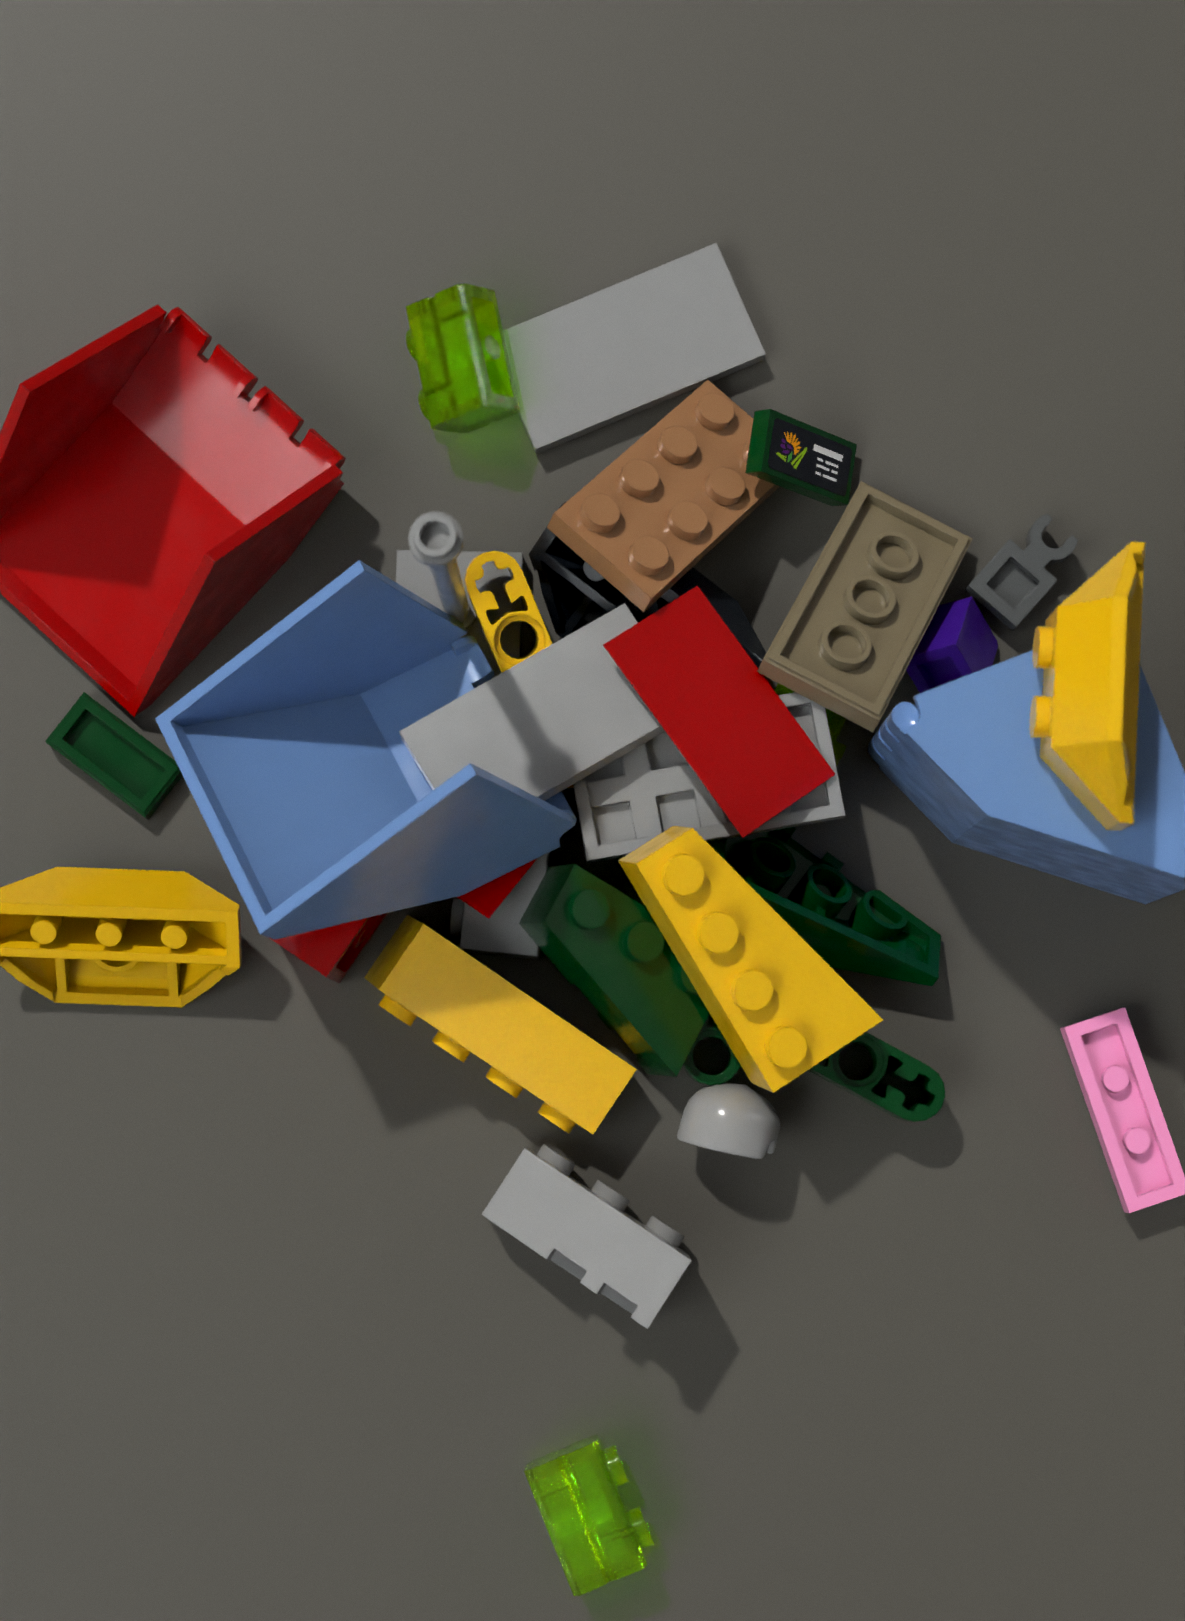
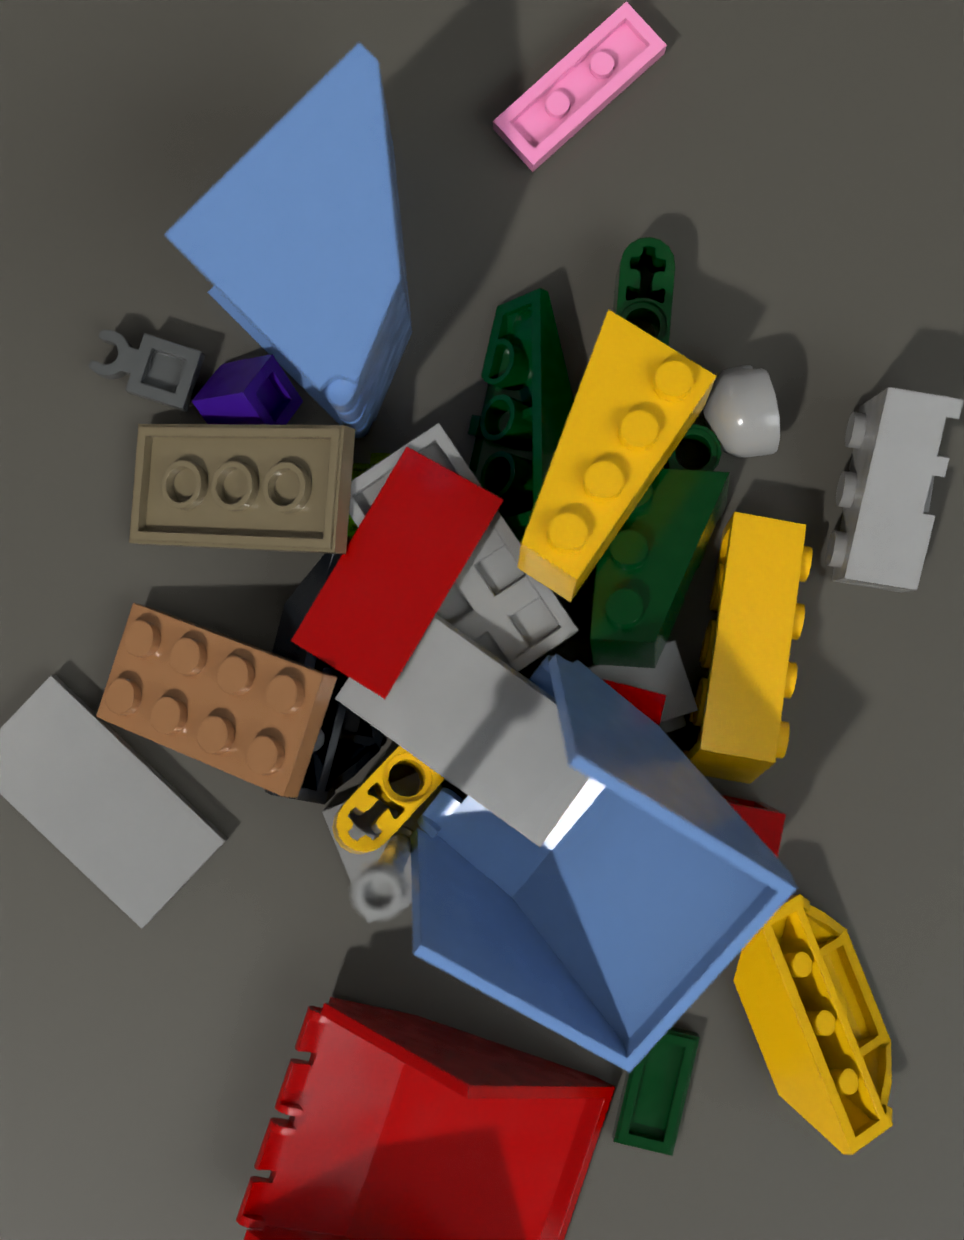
camera: 115 degrees left, 5 degrees up
(461, 359) = (172, 943): clear neon green brick -> none
(801, 458) = (132, 603): tile -> none
(1093, 688) = (241, 226): yellow wedge -> none

